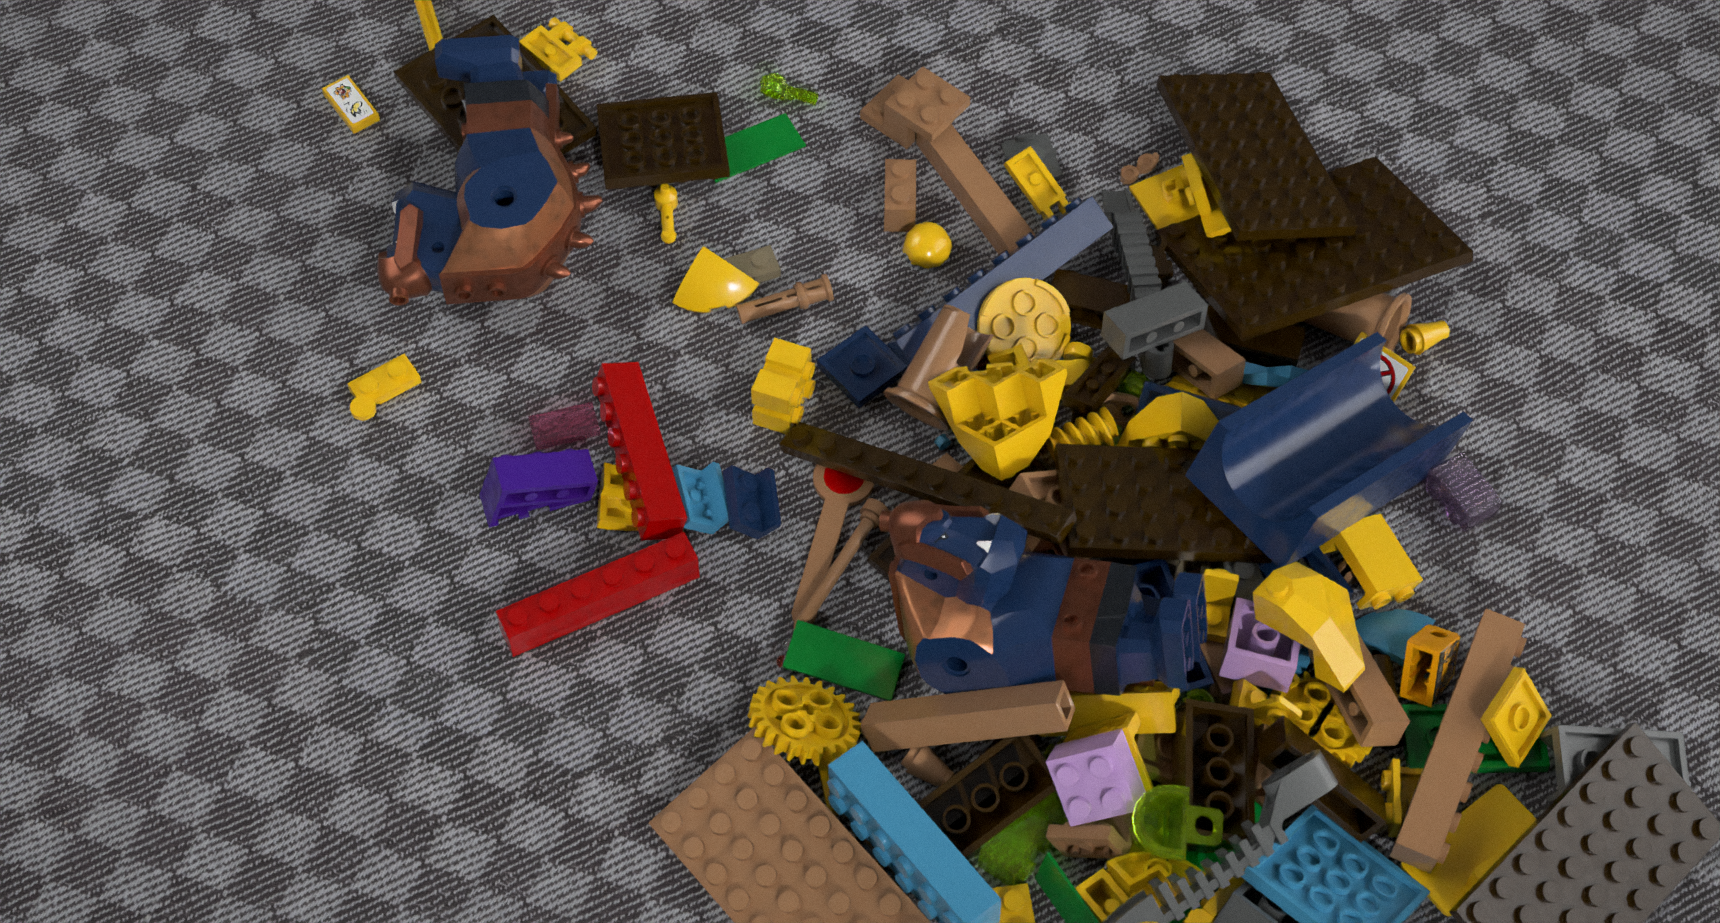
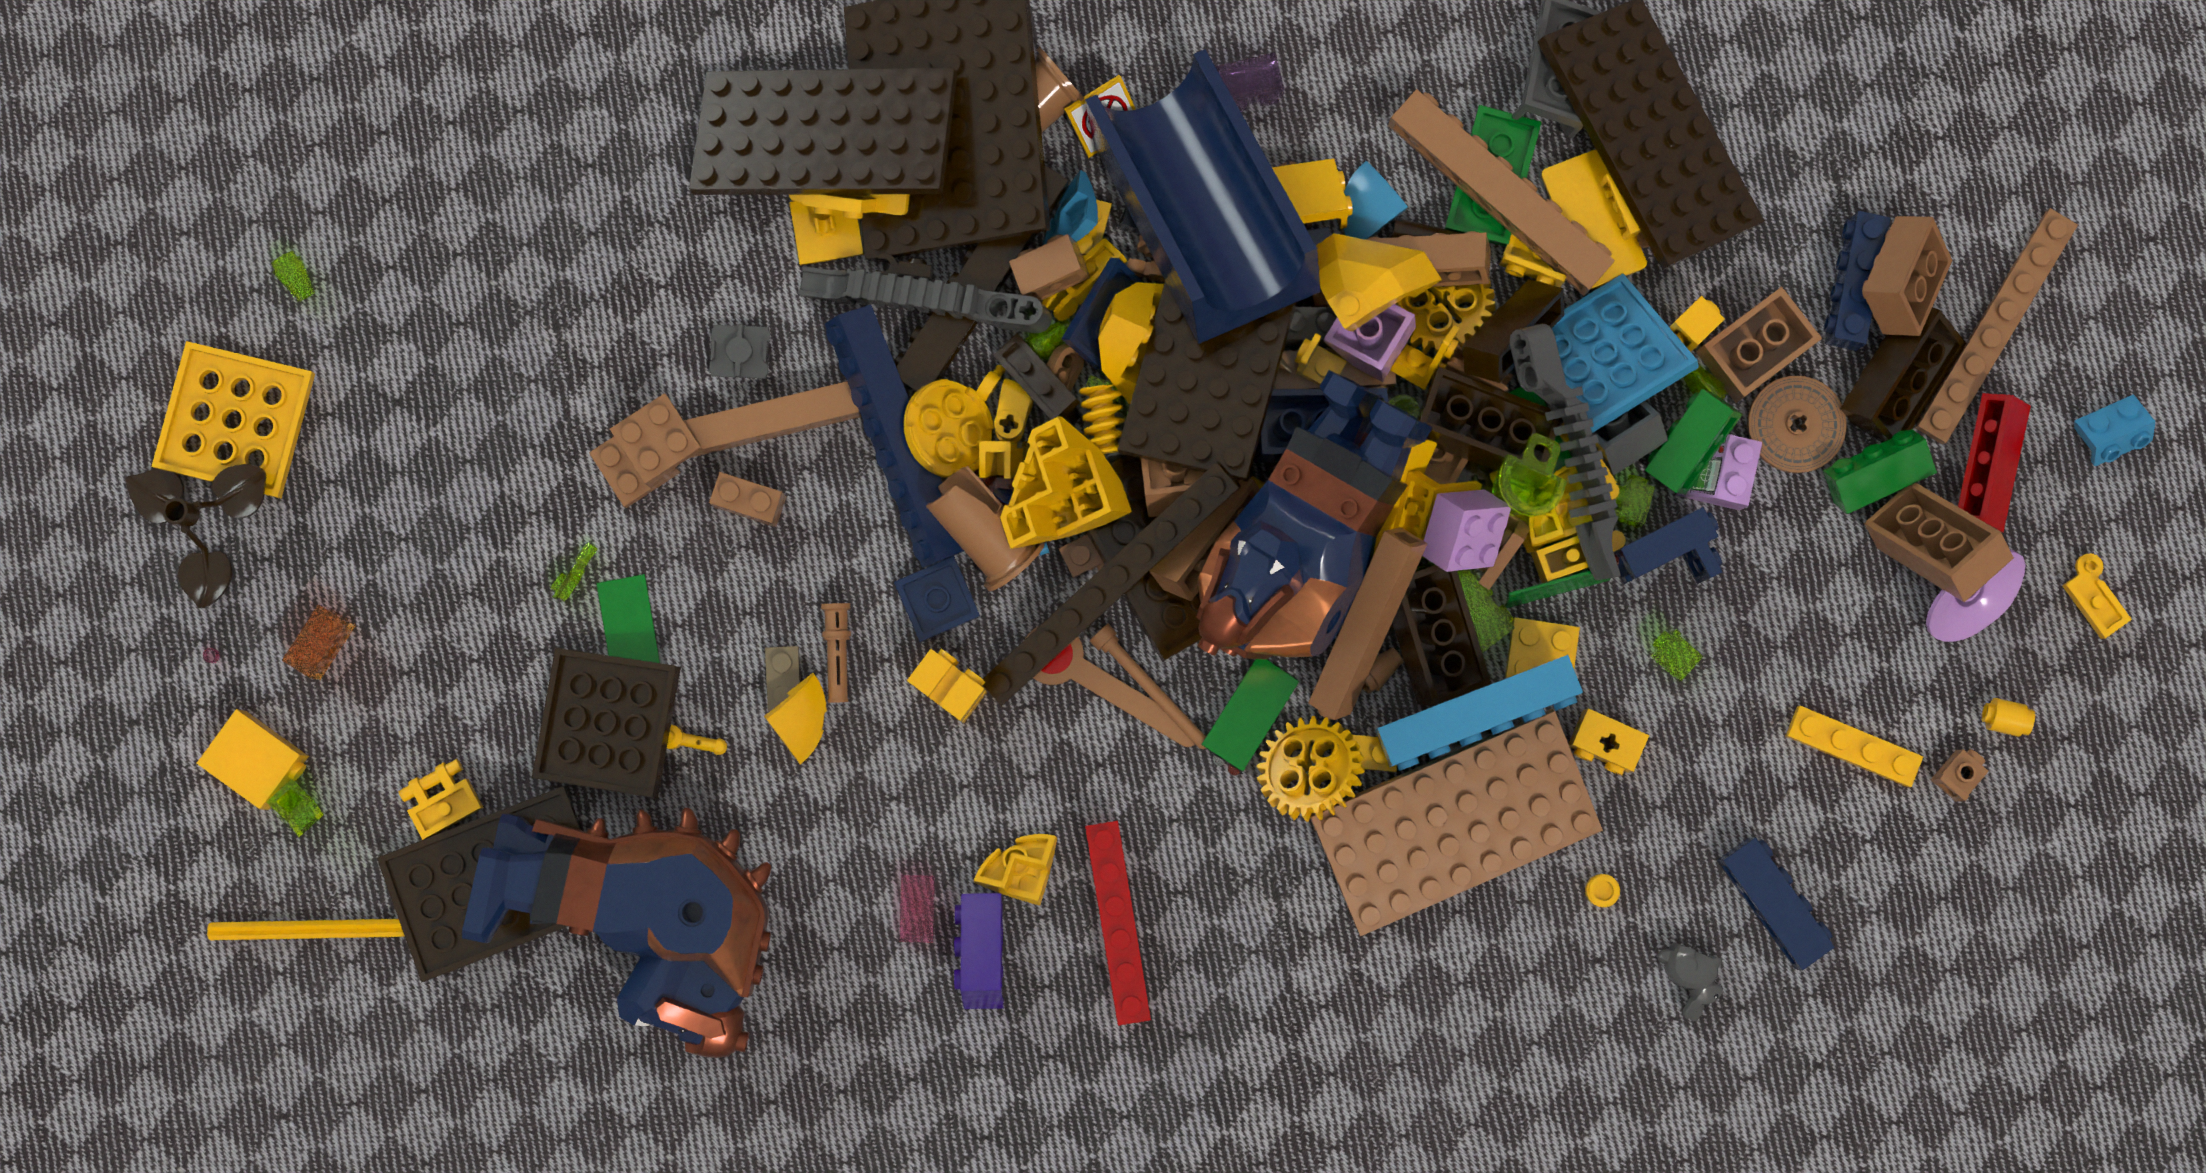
camera: 70 degrees left, 25 degrees up
(350, 104) = (444, 1036): tile -> none
(381, 385) = (812, 1078): yellow hinge -> none
(639, 451) = (975, 844): red brick -> none
(702, 497) = (1041, 798): dark azure bracket -> none
(752, 501) = (1060, 750): dark blue bracket -> none
(927, 245) = (812, 491): yellow hair -> none
(1036, 182) = (783, 357): yellow hinge -> none
(1145, 164) = (777, 239): medium nougat piece -> none
(1154, 320) = (1004, 307): dark grey brick -> none
(1421, 336) = (1068, 49): yellow cone -> none
(1432, 652) = (1413, 181): light orange torso -> none
(1516, 717) = (1501, 135): yellow plate -> none

